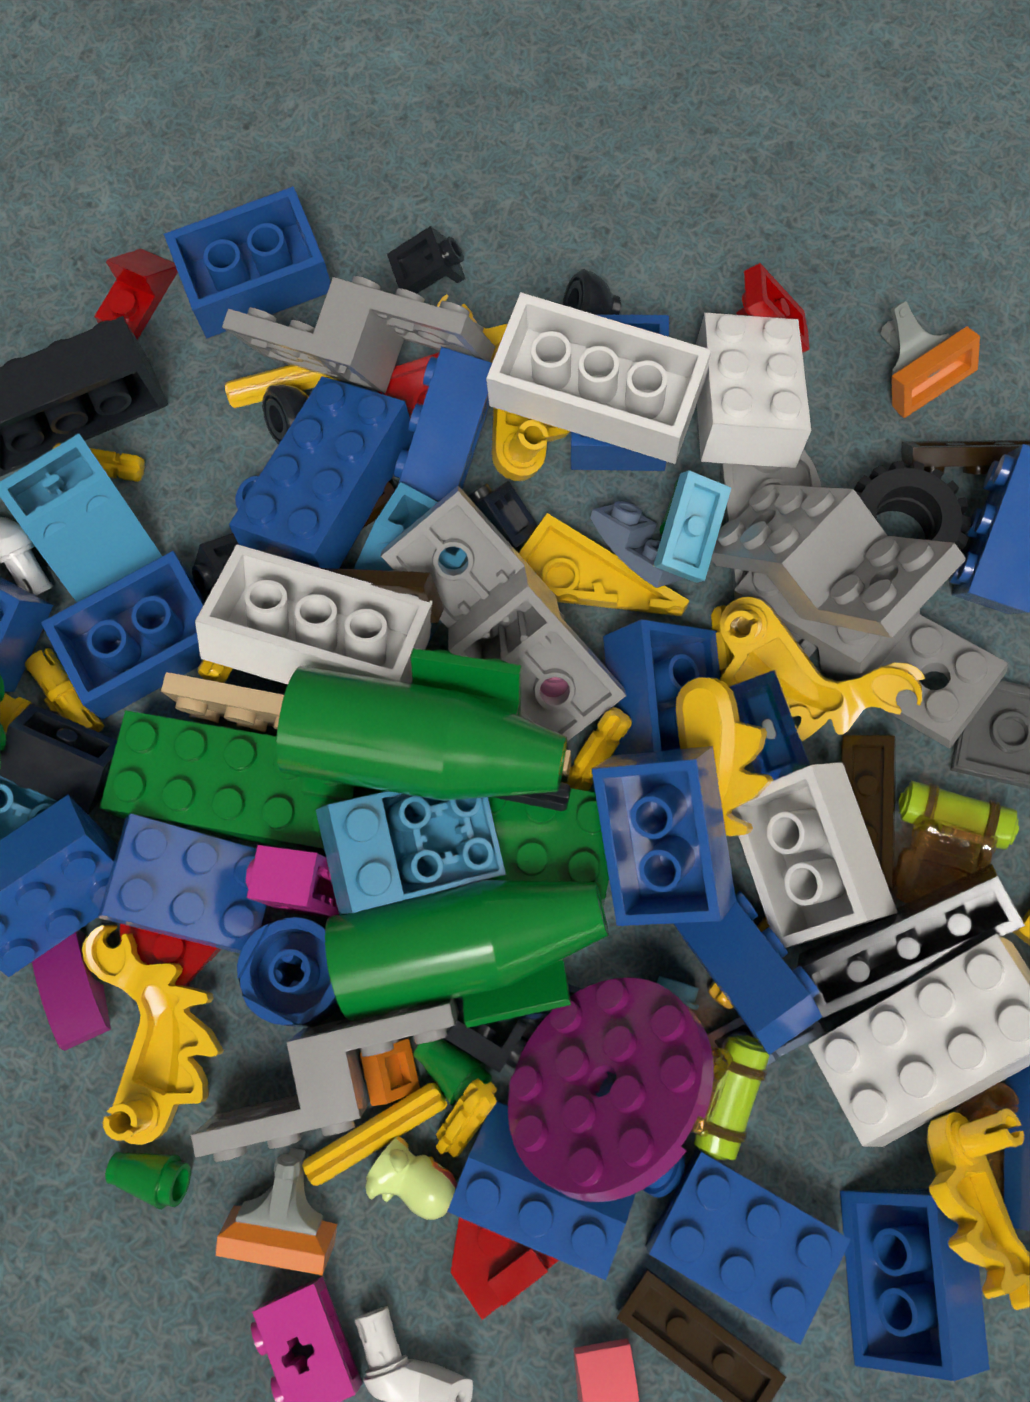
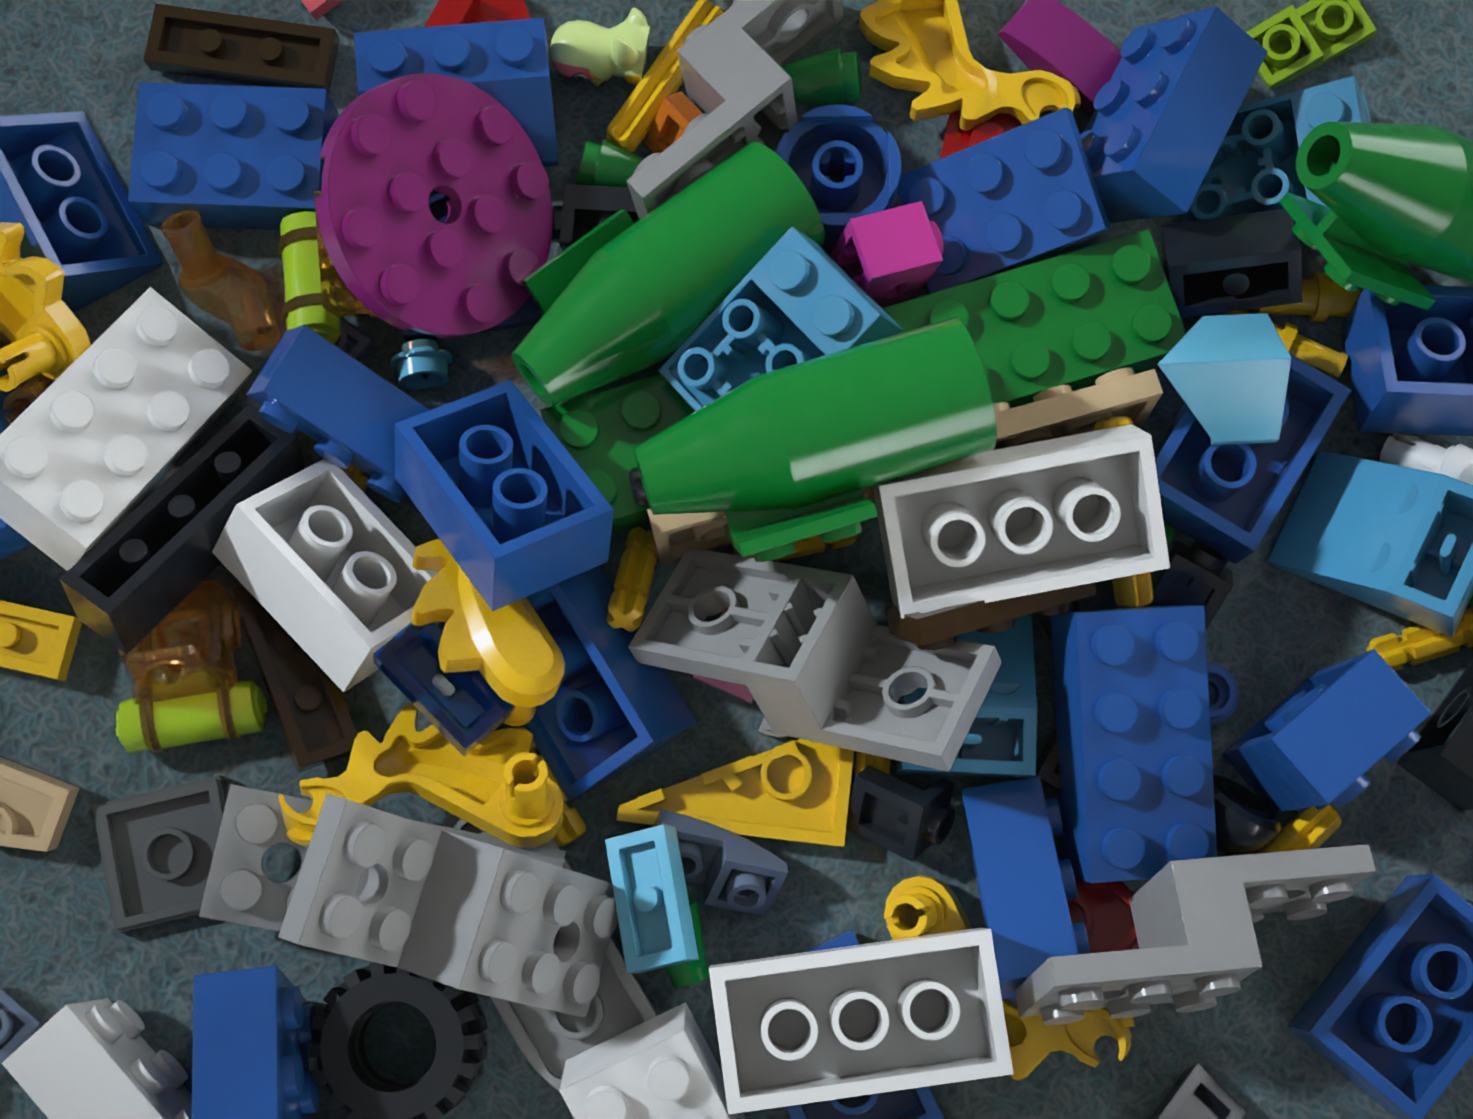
camera: 145 degrees right, 5 degrees up
(109, 664) = (1232, 377): none -> medium azure slope
(203, 414) = (1329, 735): none -> blue brick
(259, 1065) = (826, 78): none -> green cone
(466, 1117) = (576, 127): yellow axle -> none
(801, 1140) = (221, 283): none -> clear orange arm

